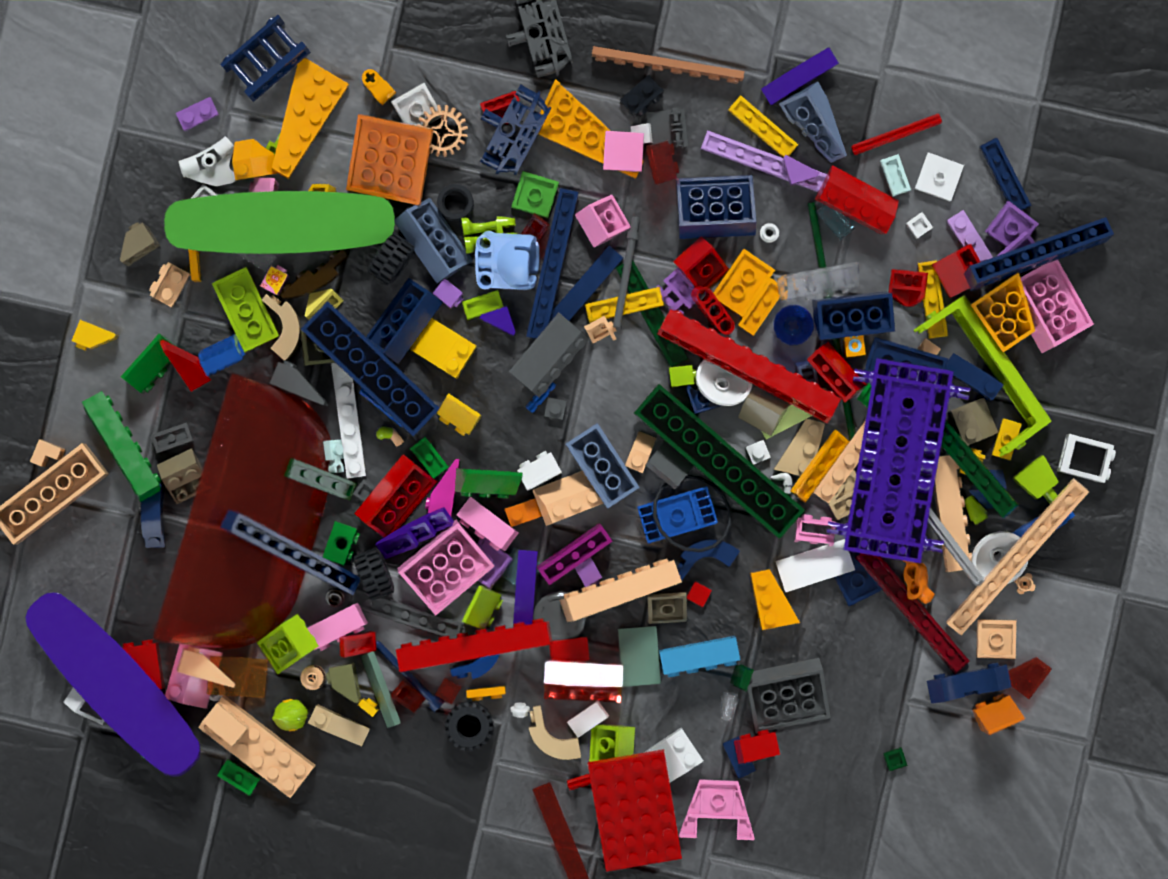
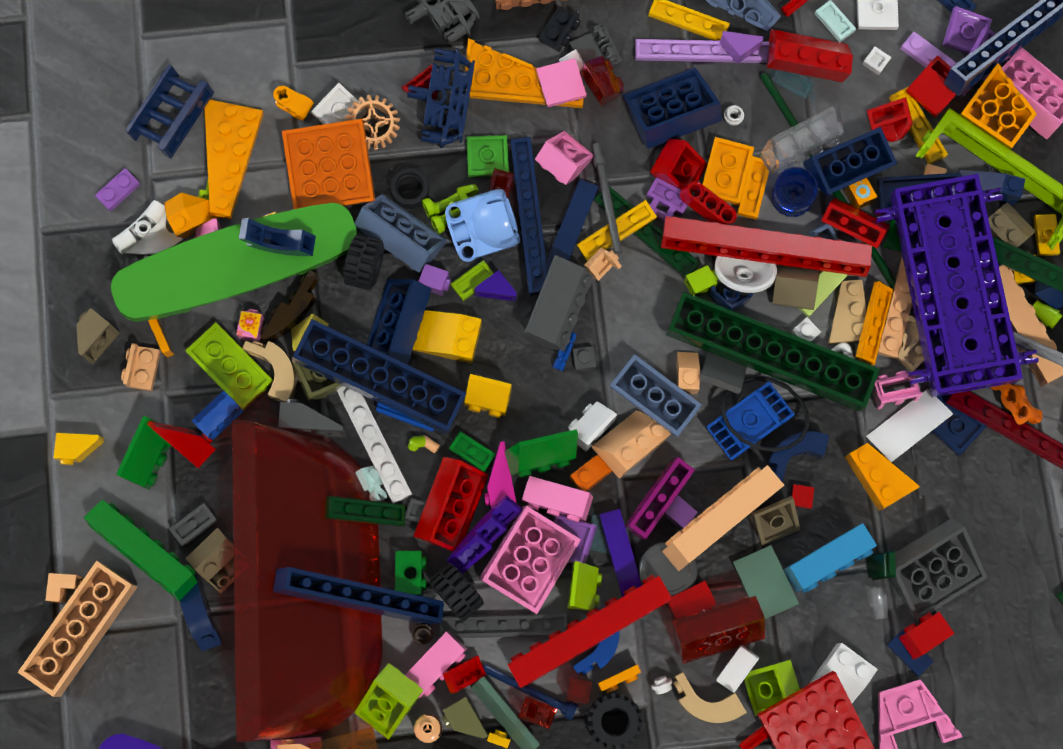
camera: 20 degrees left, 10 degrees down
(321, 218) = (277, 240): none -> dark blue arch

